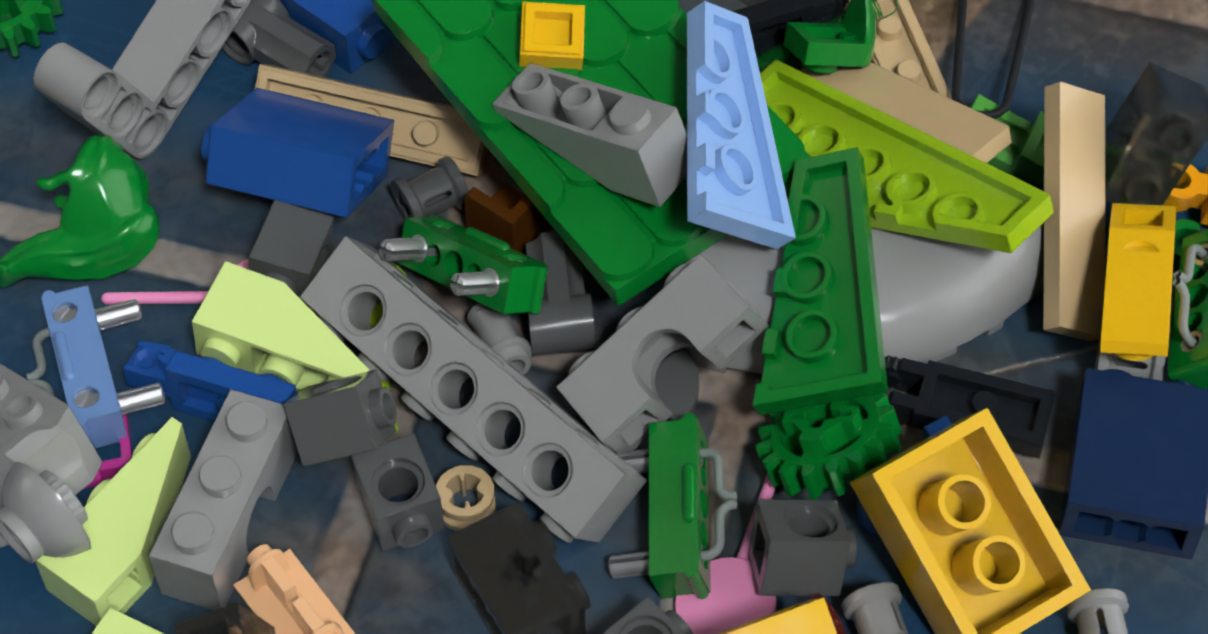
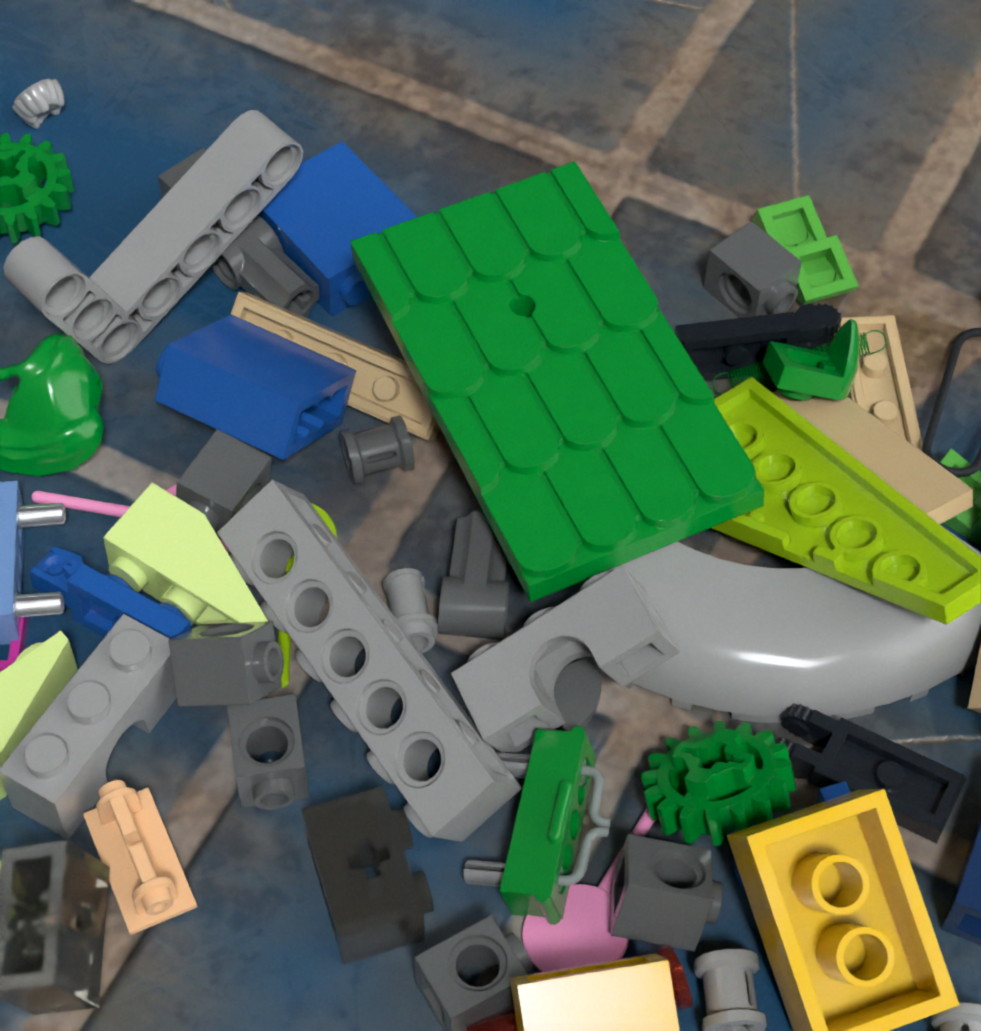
camera: 10 degrees right, 0 degrees up
(462, 479) = (336, 748): tan bush -> none
(469, 264) = (393, 530): green piece -> none
(505, 216) = (439, 492): reddish brown panel -> none
(552, 35) = (521, 314): yellow tile -> none
(605, 132) = (549, 421): light grey slope -> none
(730, 140) = (676, 454): light blue wing -> none
(826, 307) = (744, 639): green wing -> none

